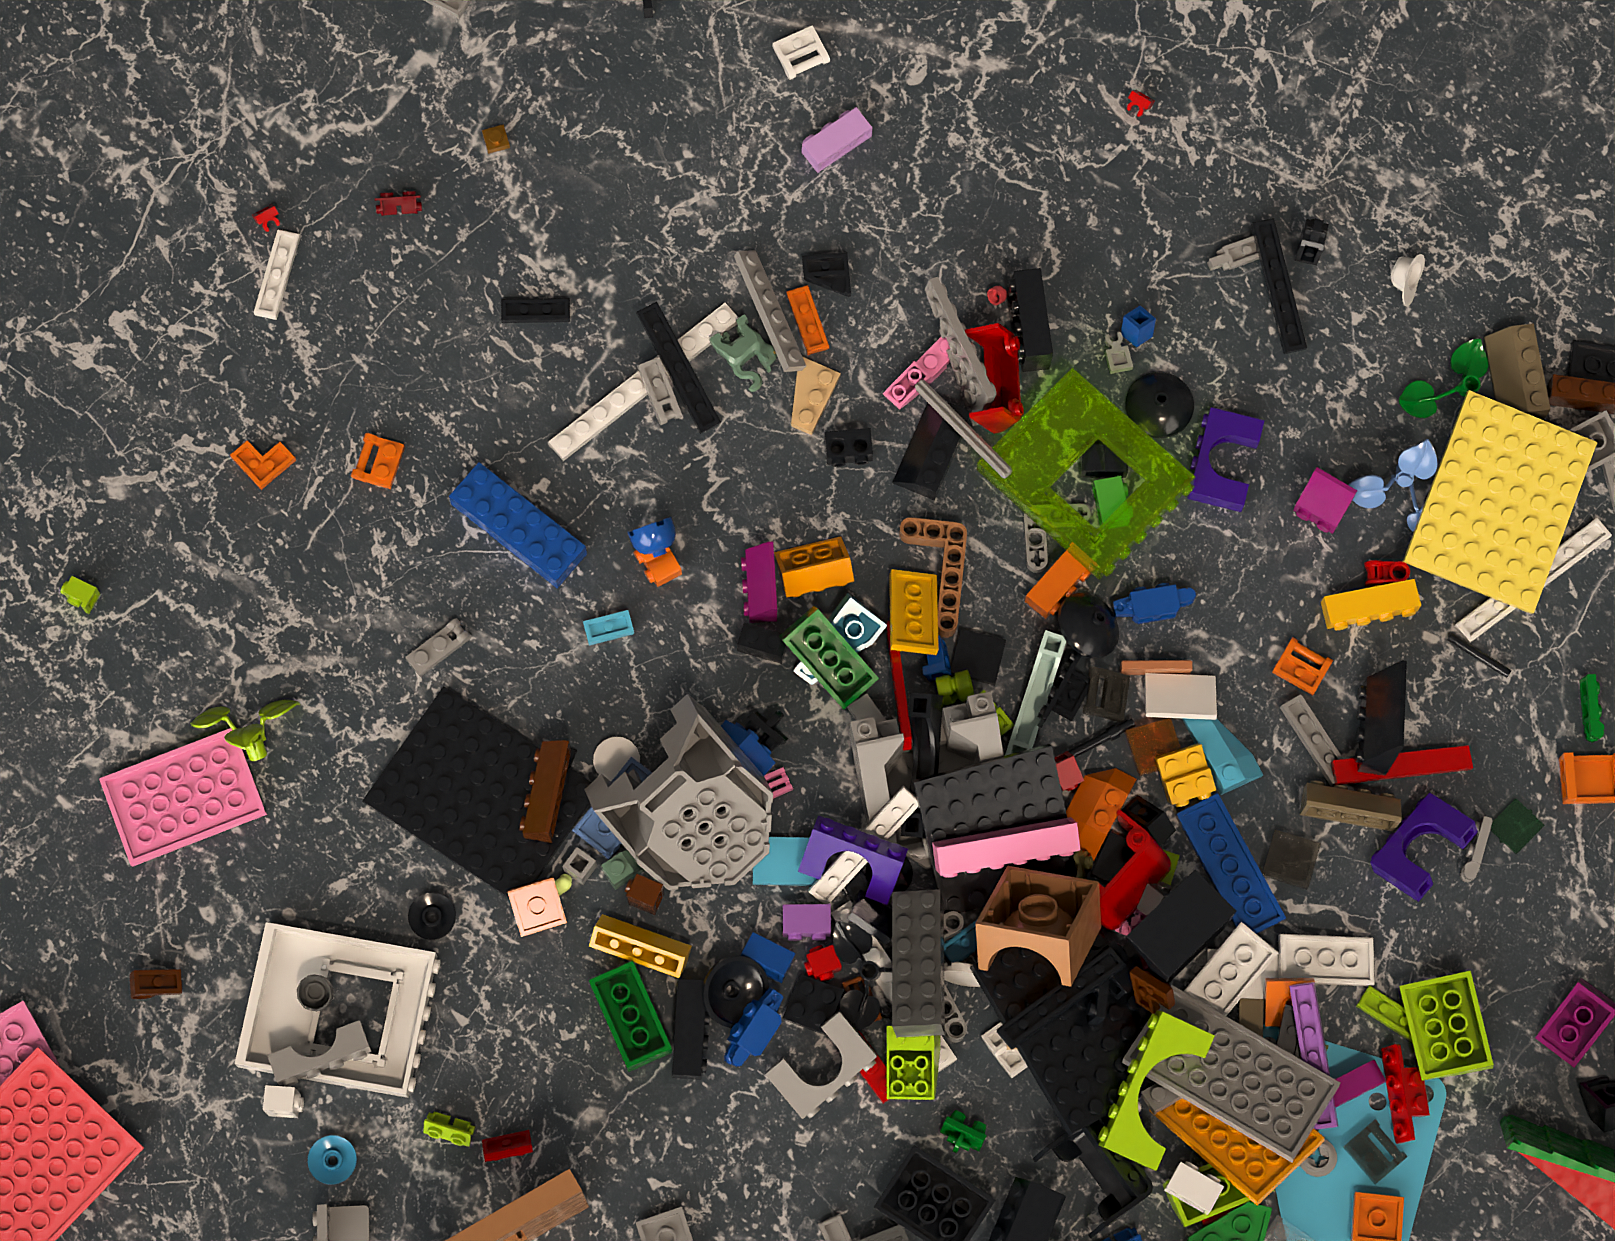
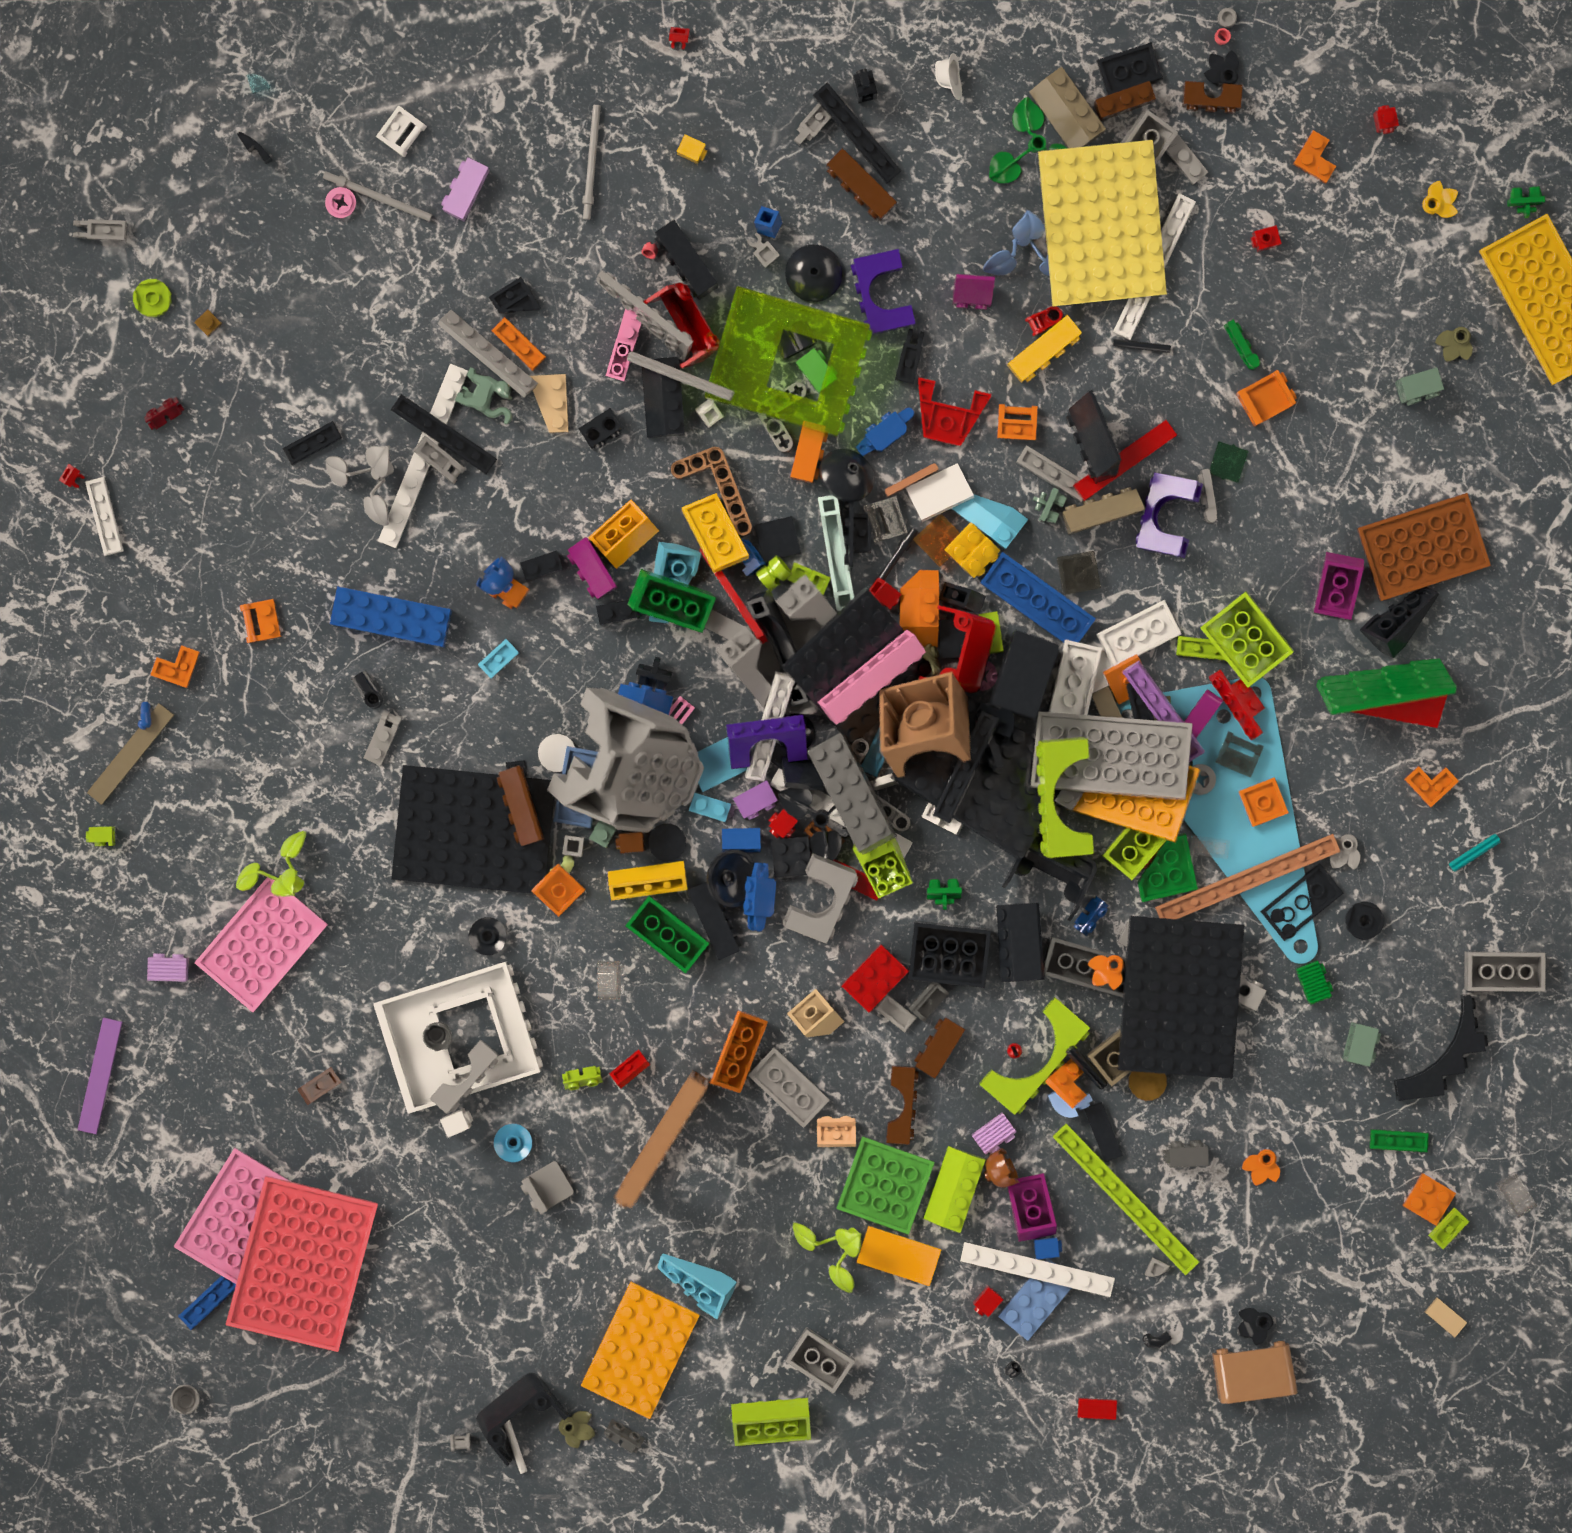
camera: 25 degrees left, 15 degrees up
(67, 770) = (167, 968): none -> lavender brick
(161, 526) = (129, 755): none -> dark tan tile
(199, 494) = (145, 715): none -> blue arm
(450, 587) = (367, 688): none -> black piece
(452, 87) = (152, 298): none -> lime tile
(539, 1034) = (609, 980): none -> clear brick
(594, 350) = (380, 466): none -> light grey plant
(639, 1187) = (739, 1051): none -> orange slope
(684, 917) = (667, 842): none -> black tile
(701, 81) = (337, 194): none -> bright pink gear
(708, 554) = (541, 566): none -> black brick
(713, 72) = (343, 182): none -> light grey bar
(747, 1196) = (815, 1016): none -> tan slope
(751, 904) = (709, 807): none -> medium azure plate
(836, 1187) = (874, 978): none -> red brick
(960, 213) = (588, 199): none -> light grey bar
(972, 490) = (709, 413): none -> white slope
(1095, 216) = (692, 149): none -> yellow brick
(1150, 991) = (1026, 728): reddish brown plate -> none
(1153, 896) = (996, 656): dark grey brick -> none
(1194, 1187) = (1125, 851): white brick -> none
(1218, 542) = (909, 359): none -> black hinge
(1225, 626) = (944, 421): none -> red wing
(1257, 339) = (861, 184): none -> reddish brown brick
(1303, 765) = (1047, 514): none -> sand green hips

